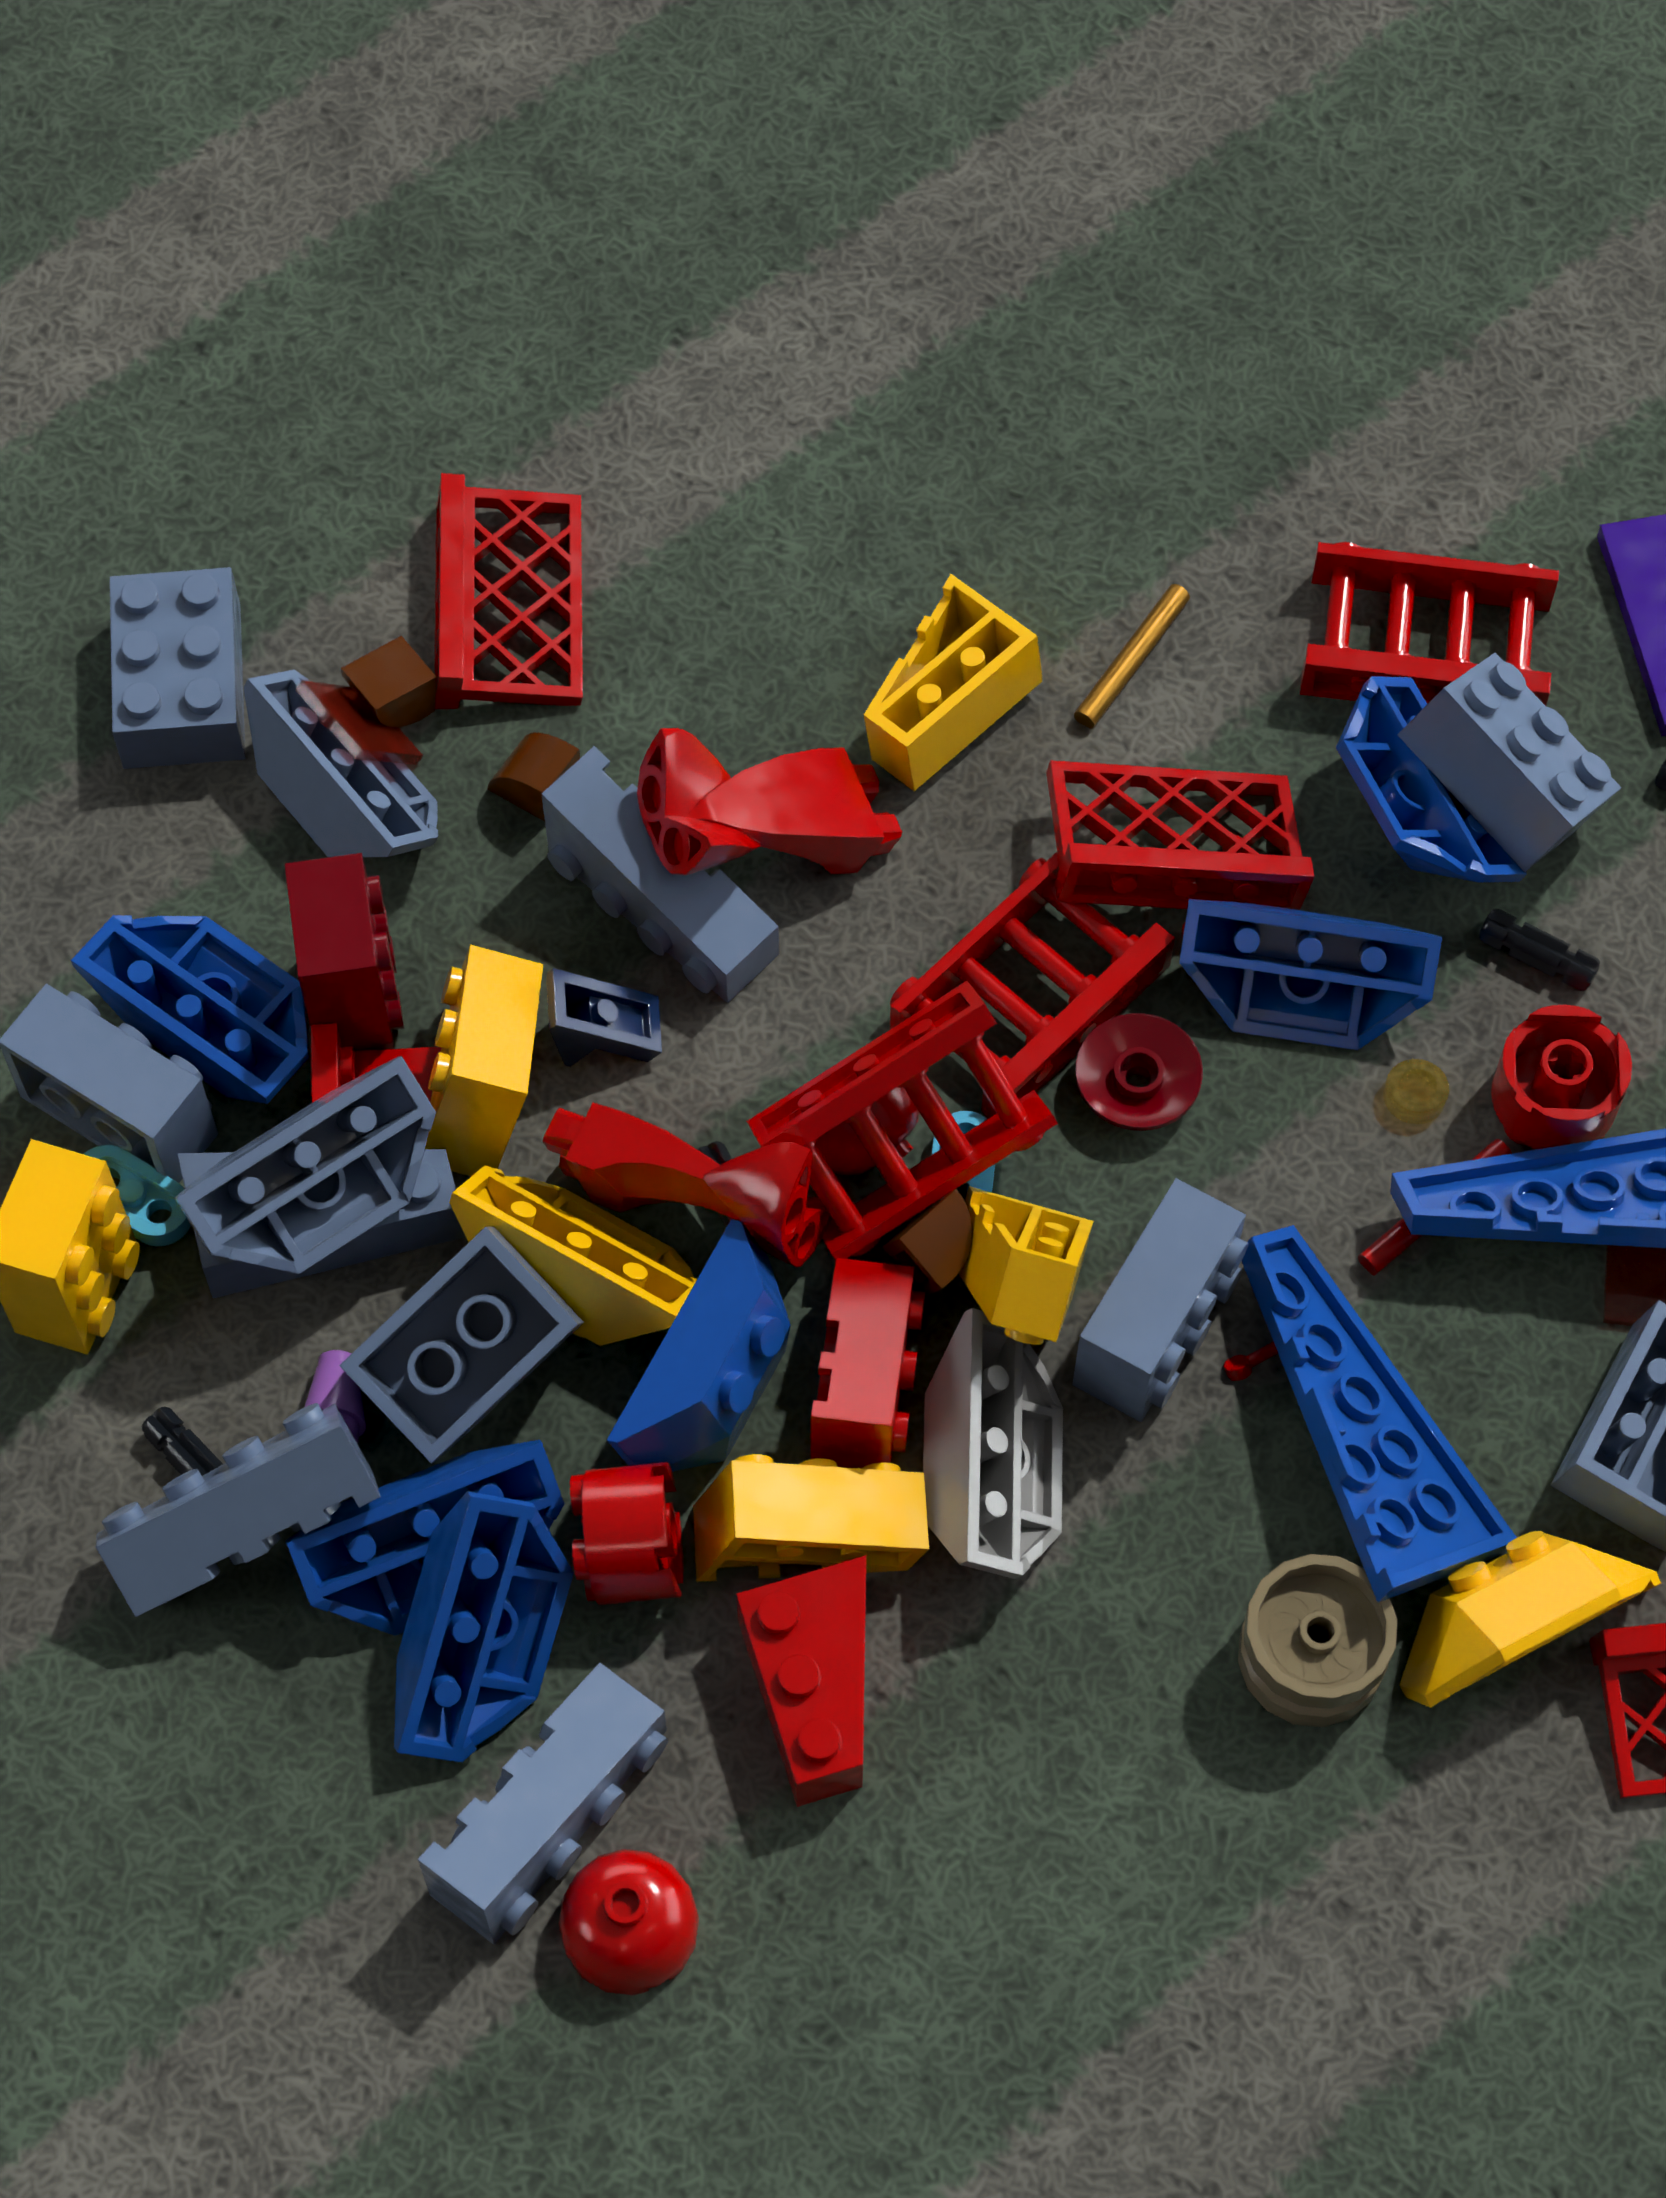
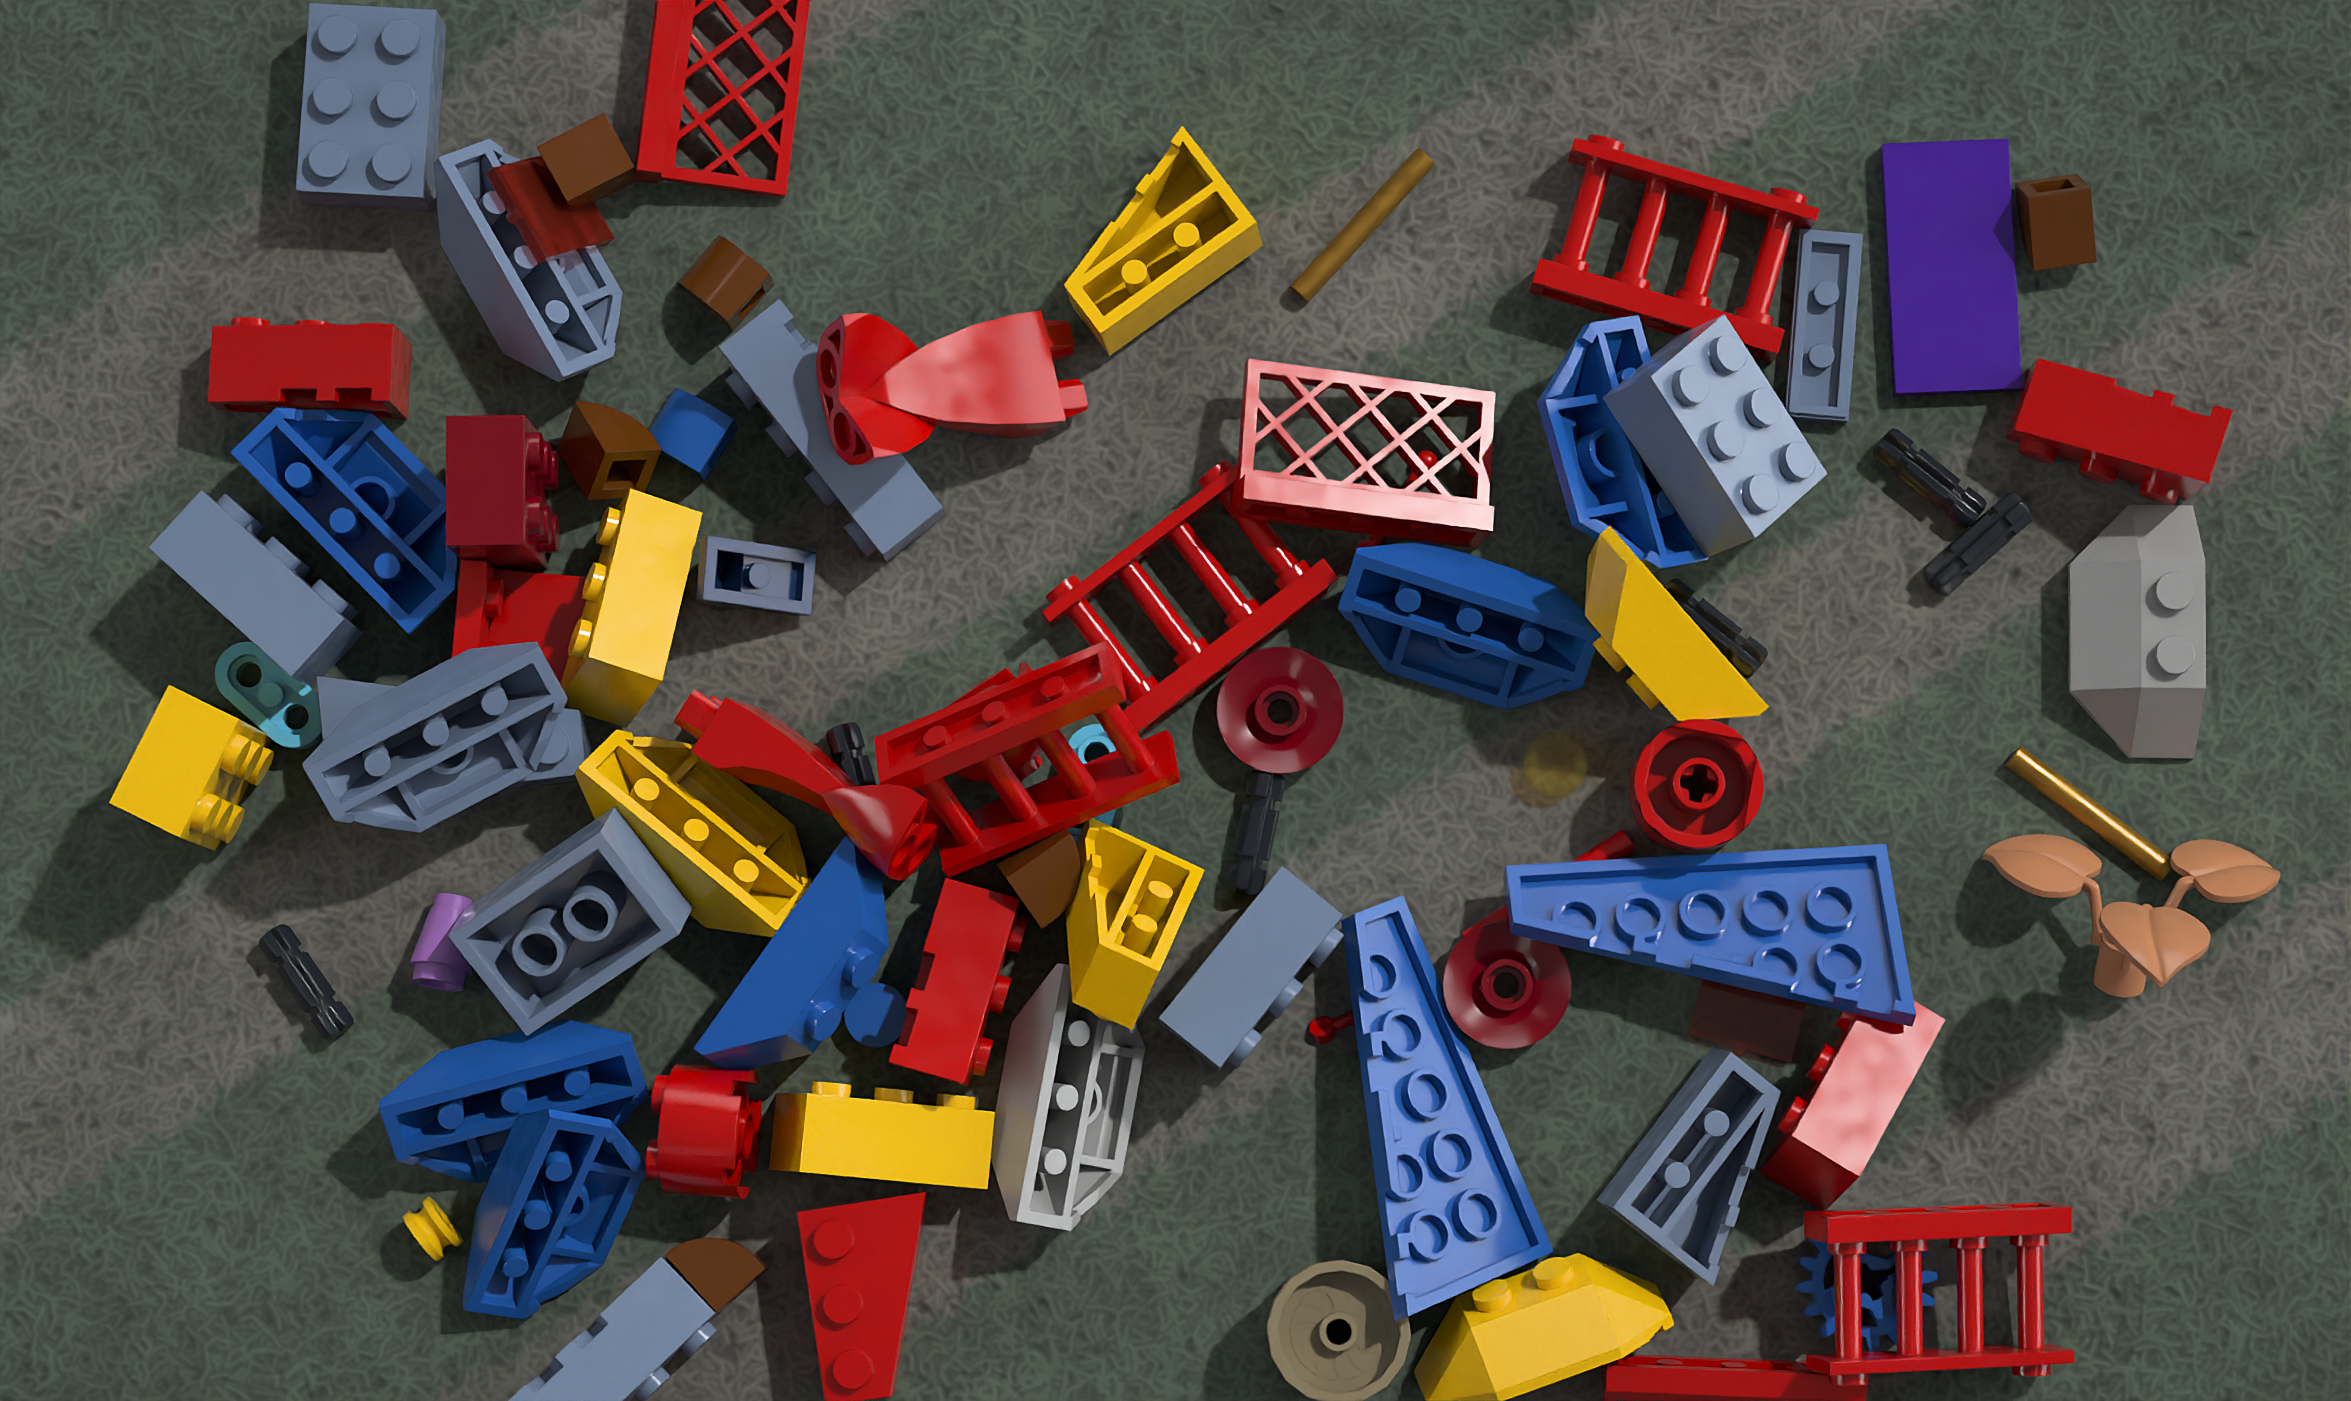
camera: 10 degrees right, 20 degrees up
(156, 874) = (310, 367): none -> red wedge
(235, 1508) = (342, 1055): sand blue wedge -> none
(354, 1681) = (432, 1229): none -> yellow bush
(440, 926) = (607, 451): none -> reddish brown brick
(522, 907) = (692, 432): none -> blue brick
(663, 1671) = (717, 1268): none -> reddish brown brick
(783, 1413) = (876, 1015): none -> blue tile
(1135, 1186) = (1256, 833): none -> black axle
(1418, 1264) = (1513, 1021): none -> dark red dish
(1498, 925) = (1659, 640): none -> yellow wedge
(1583, 676) = (1823, 325): none -> sand blue tile

